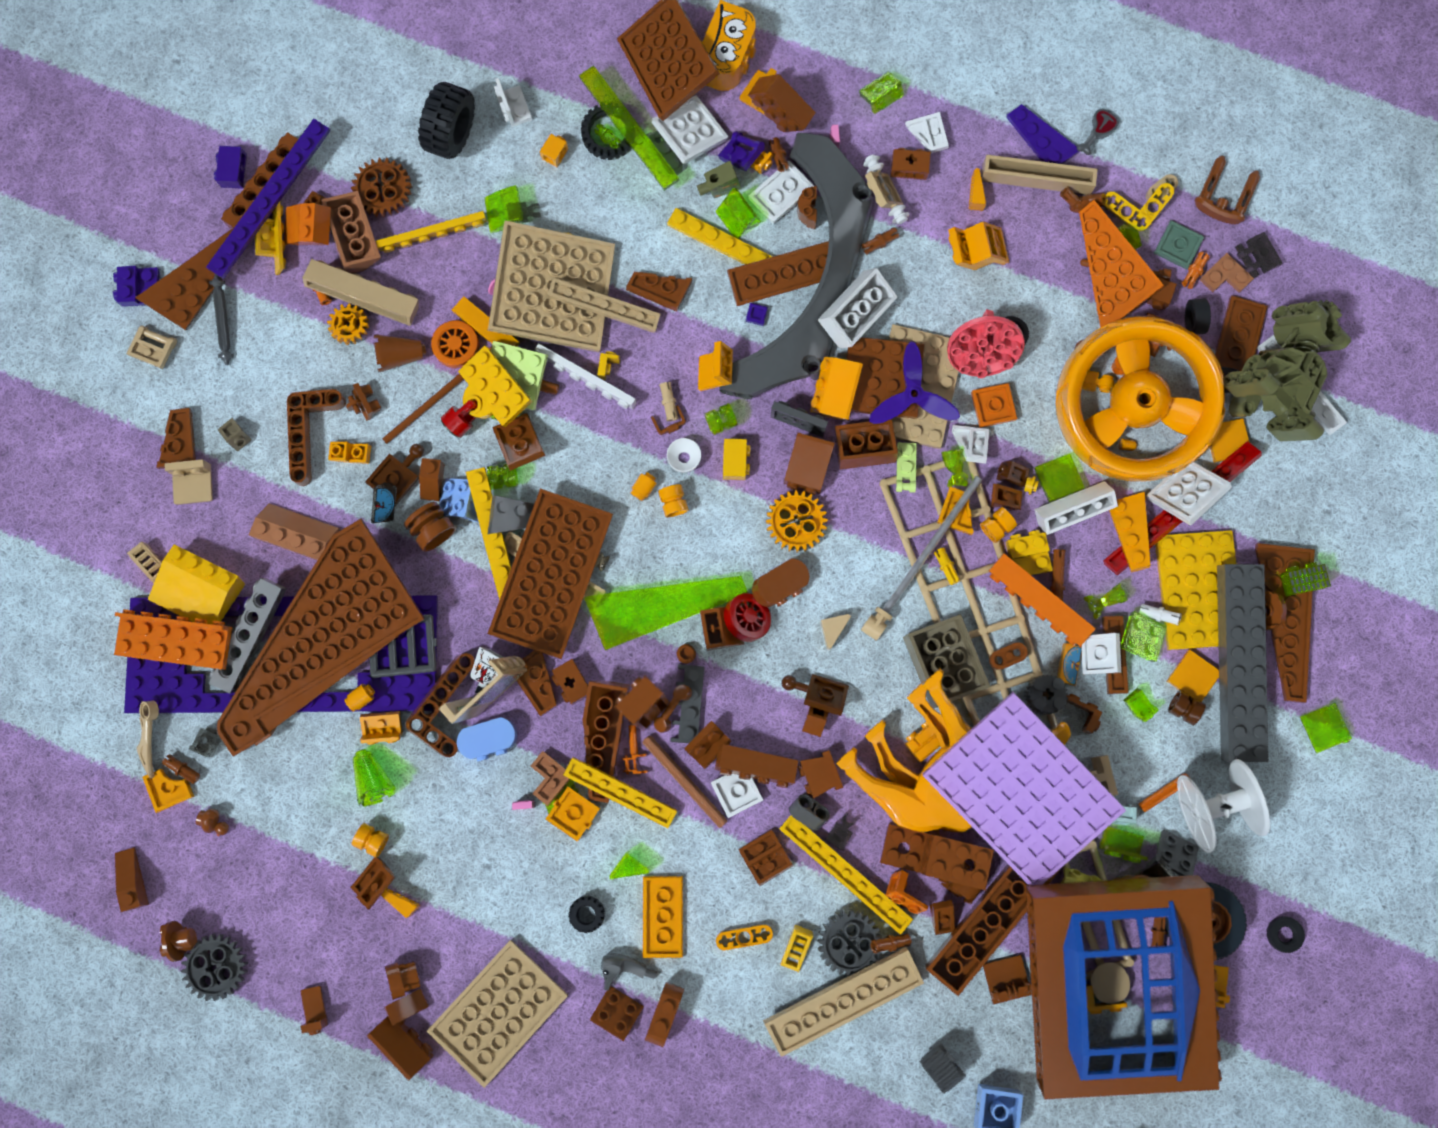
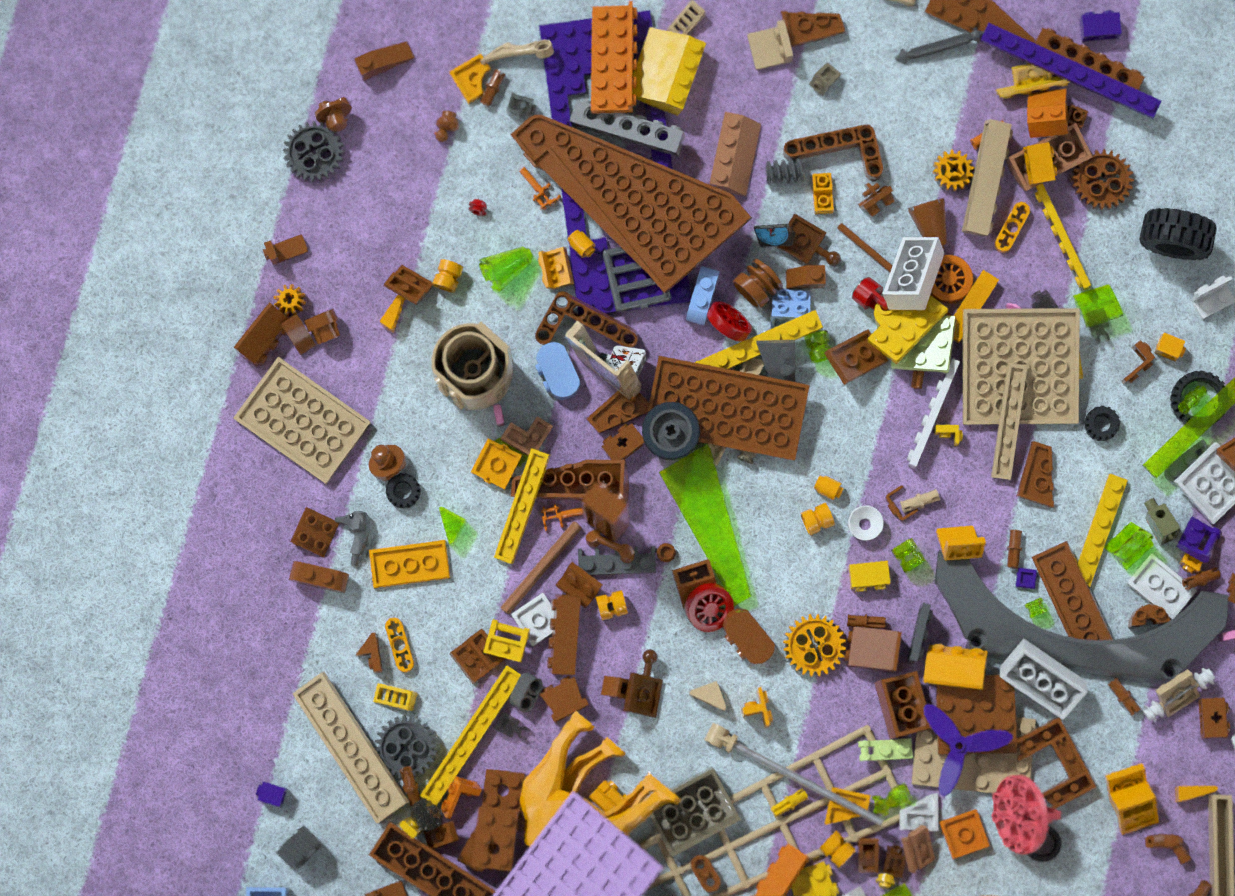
camera: 85 degrees right, 0 degrees up
(294, 735) = (538, 188): none -> orange piece
(303, 799) = (478, 207): none -> red plate
(319, 485) = (785, 171): none -> dark grey piece
(355, 237) = (1039, 163): none -> light orange brick
(370, 1004) = (296, 299): none -> light orange gear
(400, 274) = (1010, 241): none -> light orange beam
(433, 582) = (702, 295): none -> light blue brick
(444, 372) = (913, 273): none -> white brick
(447, 846) = (480, 390): none -> tan piece
(463, 559) = (729, 321): none -> red wheel
(490, 258) = (1042, 300): none -> clear smoke brick
(554, 928) = (386, 461): none -> dark orange plate
(558, 173) = (1144, 352): none -> dark orange bracket
(566, 615) = (673, 416): none -> wheel
(618, 212) = (1108, 413): none -> black tyre
(727, 320) = (1014, 548): none -> dark orange axle
(732, 707) = (618, 602): none -> light orange wheel
(743, 966) = (371, 647): none -> dark orange slope
(761, 827) = (506, 647): none -> yellow plate
(779, 468) = (866, 621): none -> dark orange axle
(786, 308) = (1035, 608): none -> clear neon green wheel
(853, 582) = (753, 708): none -> light orange bracket
(882, 1091) = (271, 794): none -> dark purple brick
(910, 307) = (1056, 735): none -> dark orange wedge
(923, 930) = (426, 815): none -> clear smoke gear
(933, 947) = (410, 827): none -> yellow plate
(1005, 449) = (918, 849): none -> nougat plate
(1021, 218) = (1169, 841): none -> dark orange arm

